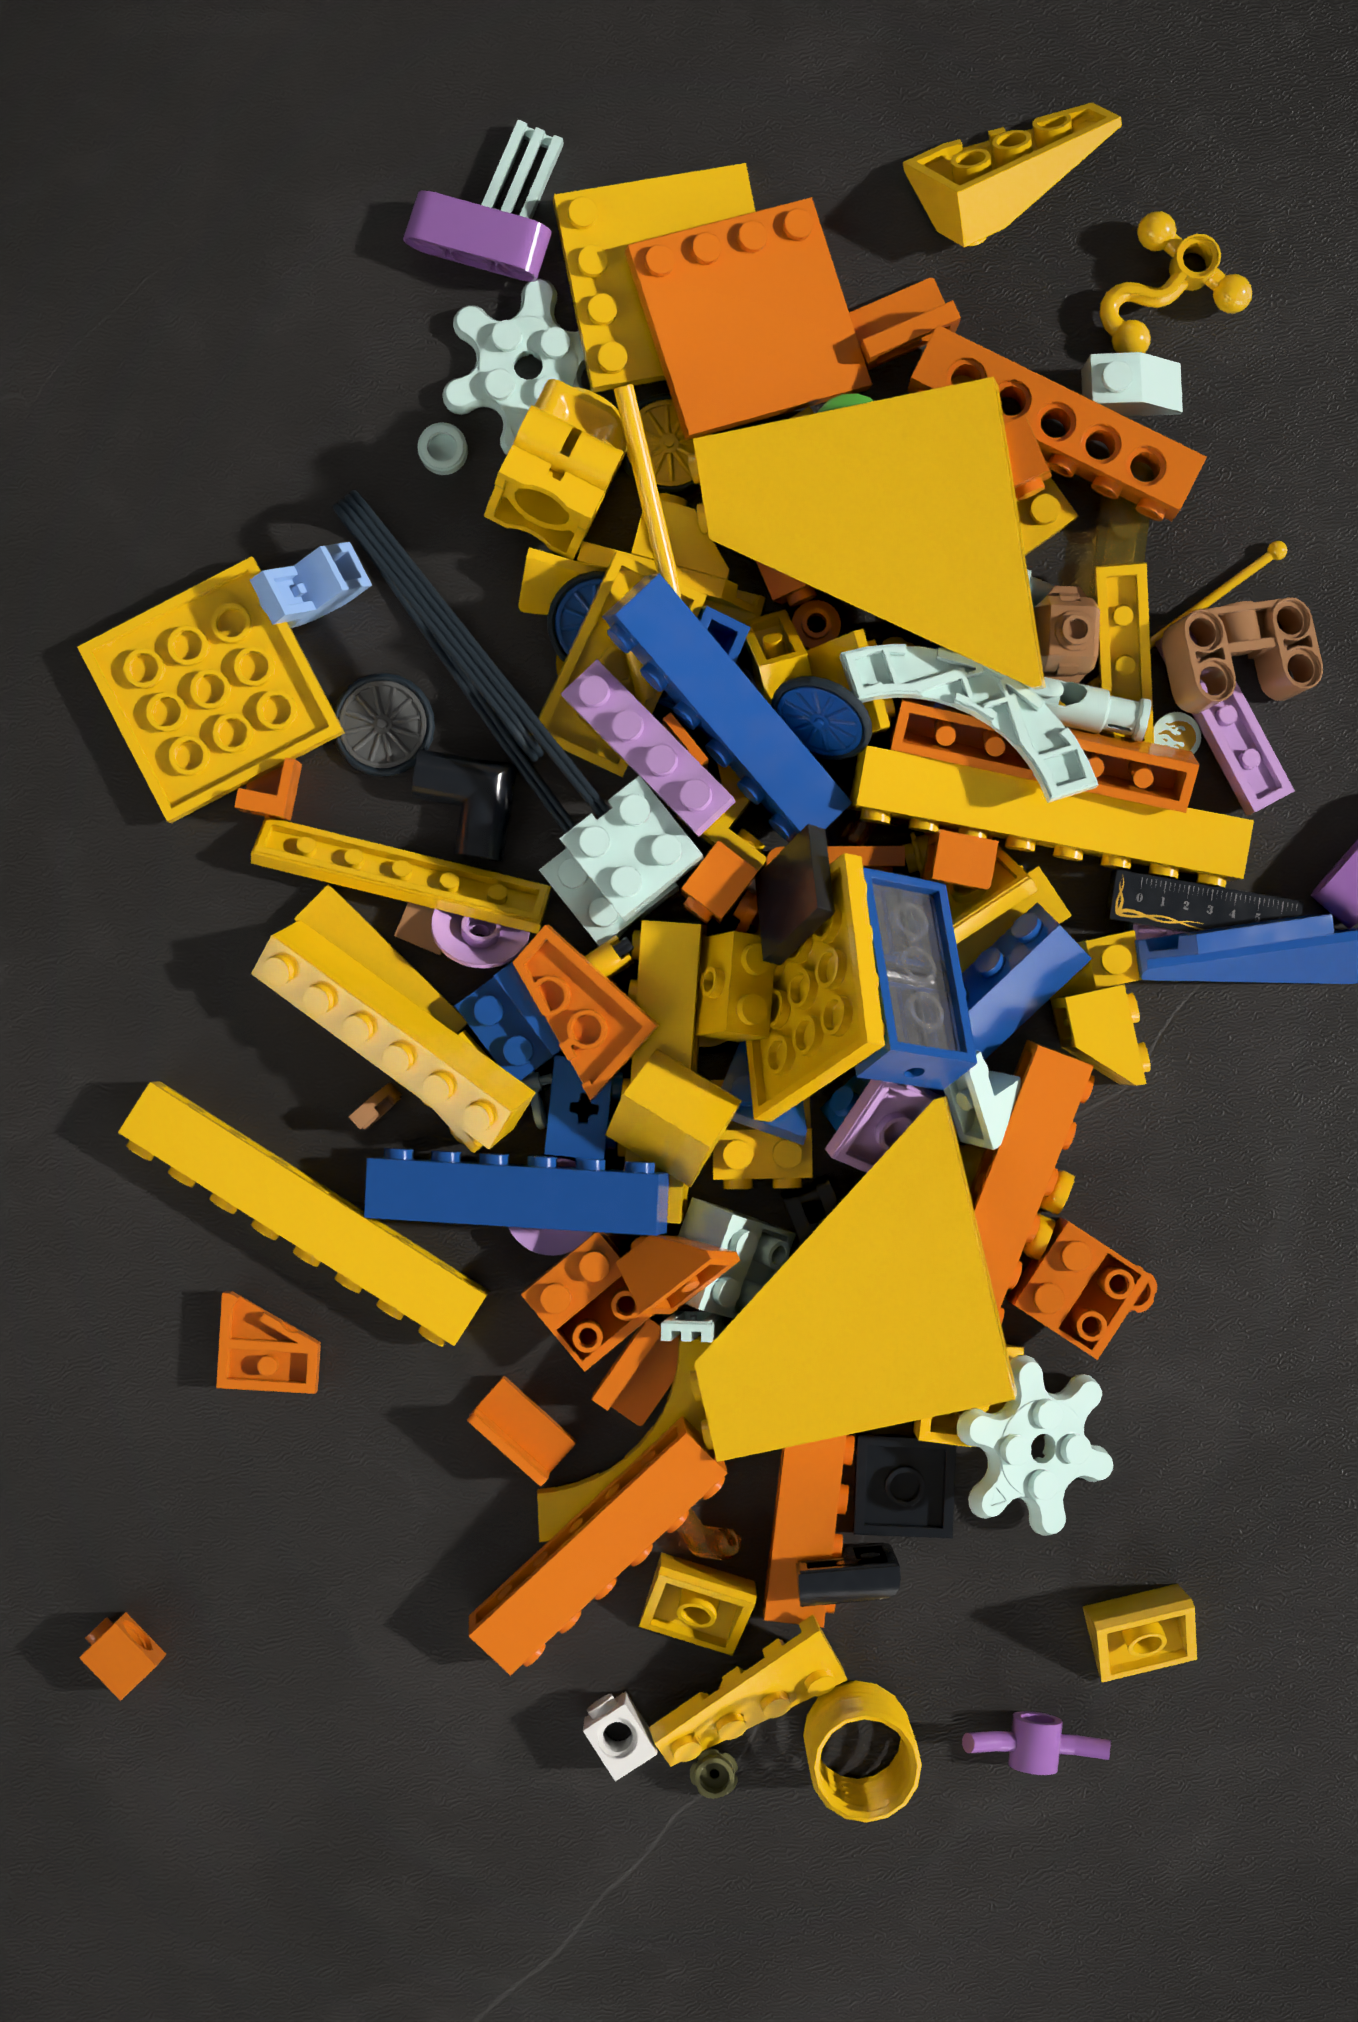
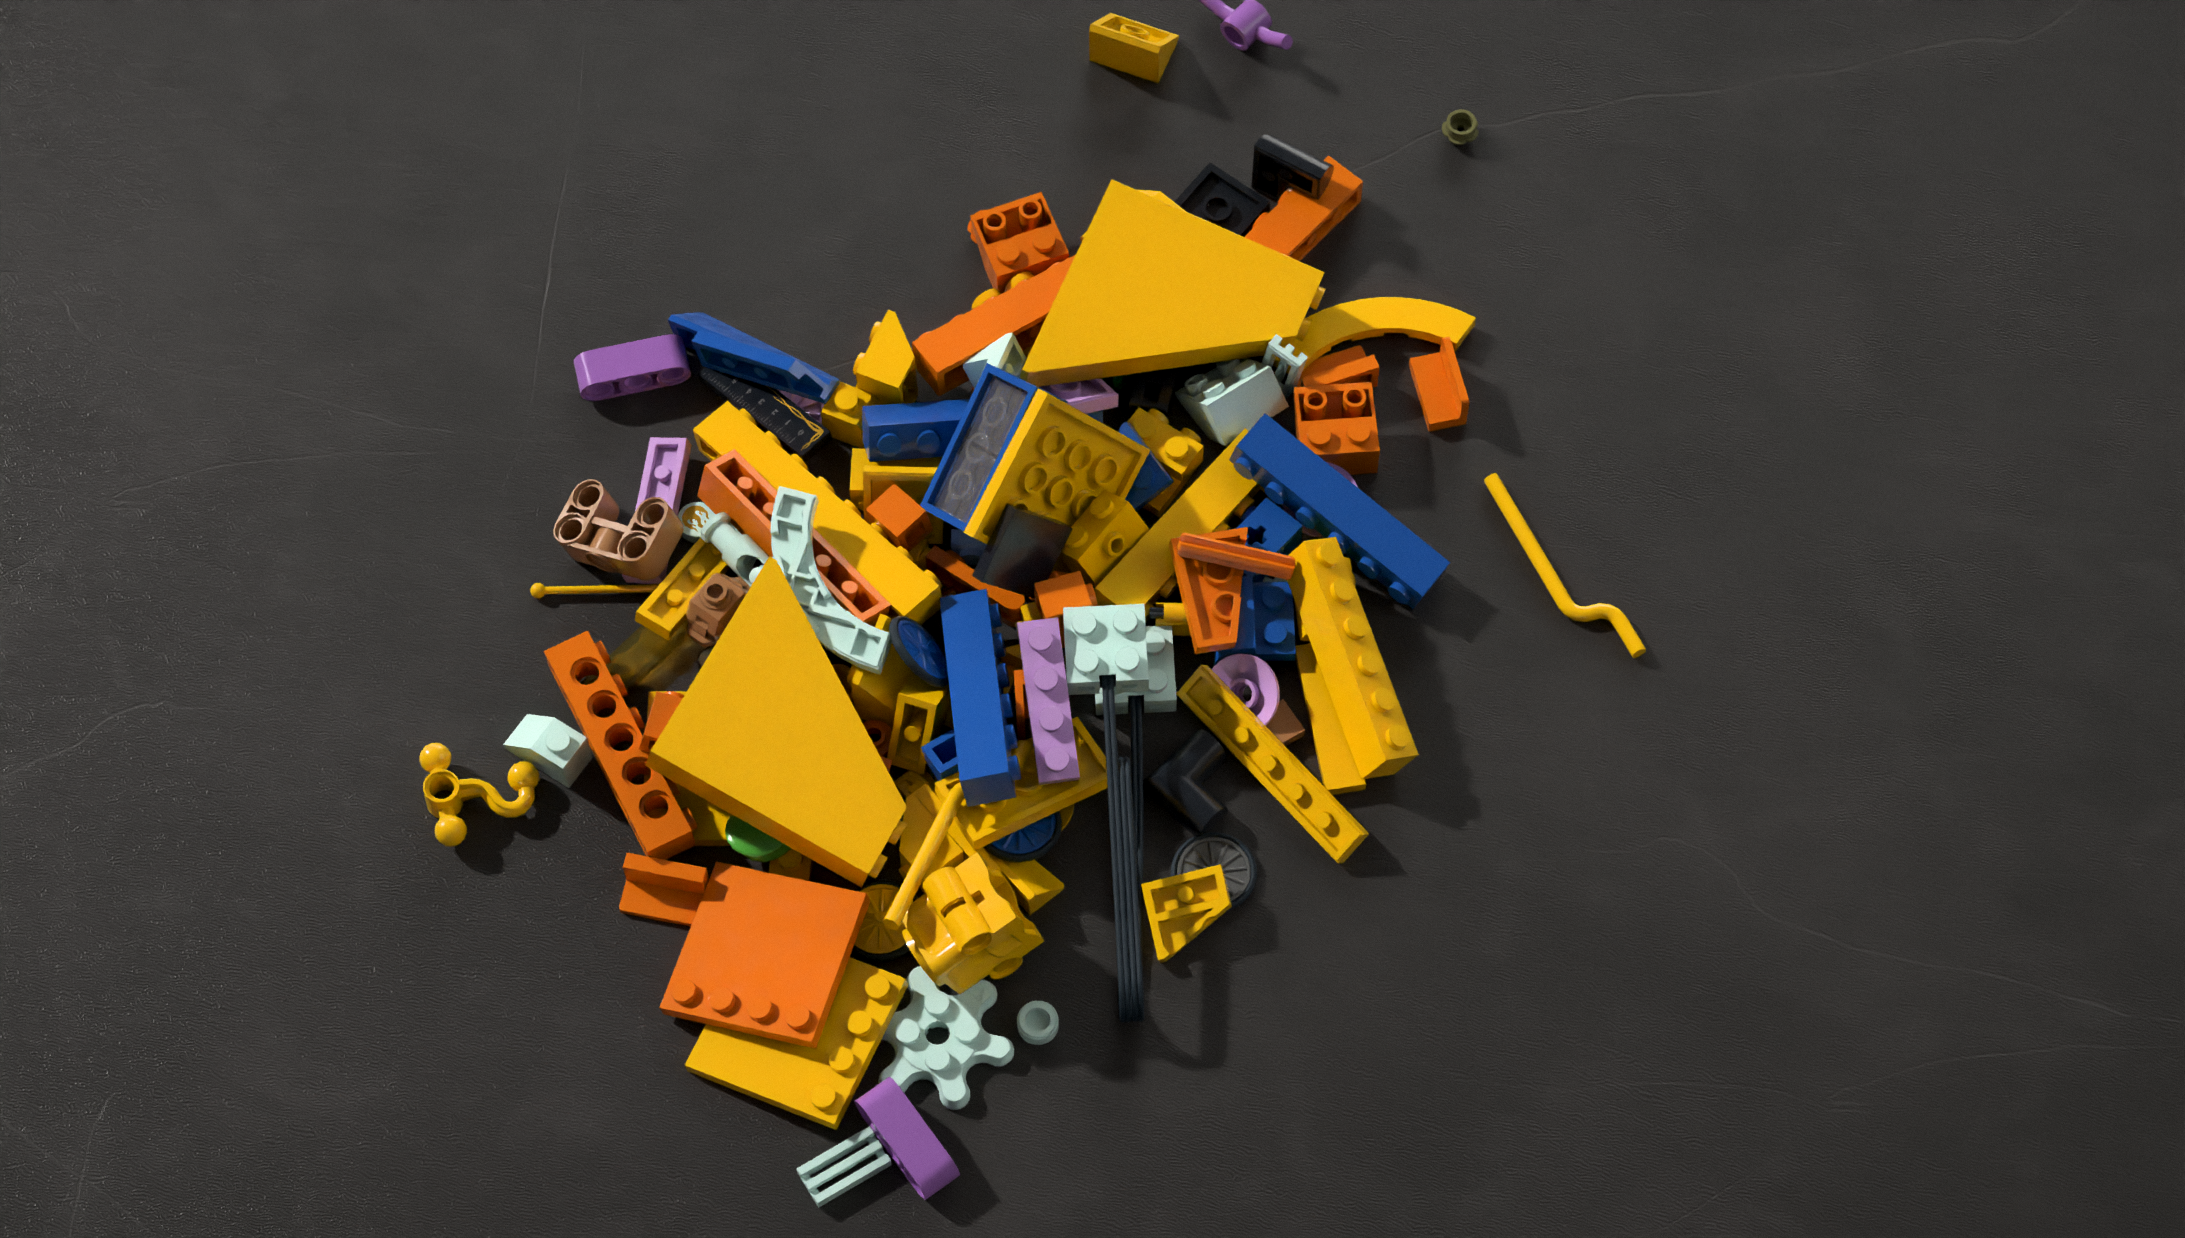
camera: 145 degrees left, 25 degrees down
(121, 1654) = (1799, 417): orange brick -> none
(209, 691) = (1316, 966): yellow plate -> none
(263, 1350) = (1577, 536): orange wing -> none
(265, 1287) = (1550, 577): none -> yellow piece
(272, 793) = (1321, 876): orange panel -> none
(303, 1212) = (1491, 601): yellow brick -> none
(312, 586) = (1194, 982): light blue brick -> none
(375, 1107) = (1397, 636): medium nougat tile -> none
(379, 658) = (1184, 907): none -> yellow wing
(575, 1052) = (1236, 556): none -> orange axle
(596, 1547) = (1439, 287): orange brick -> none
(624, 1755) = (1507, 168): white brick -> none
(671, 1270) = (1272, 394): orange slope -> none
(672, 1117) = (1200, 484): yellow slope -> none
(698, 1604) = (1396, 224): yellow slope -> none
(709, 1541) = (1367, 256): clear orange arm -> none
(750, 1696) = (1405, 151): yellow wing -> none
(871, 1796) = (1328, 77): yellow piece -> none
(991, 183) = (522, 939): yellow wedge -> none
(1008, 1440) = (1136, 162): light aqua plate -> none

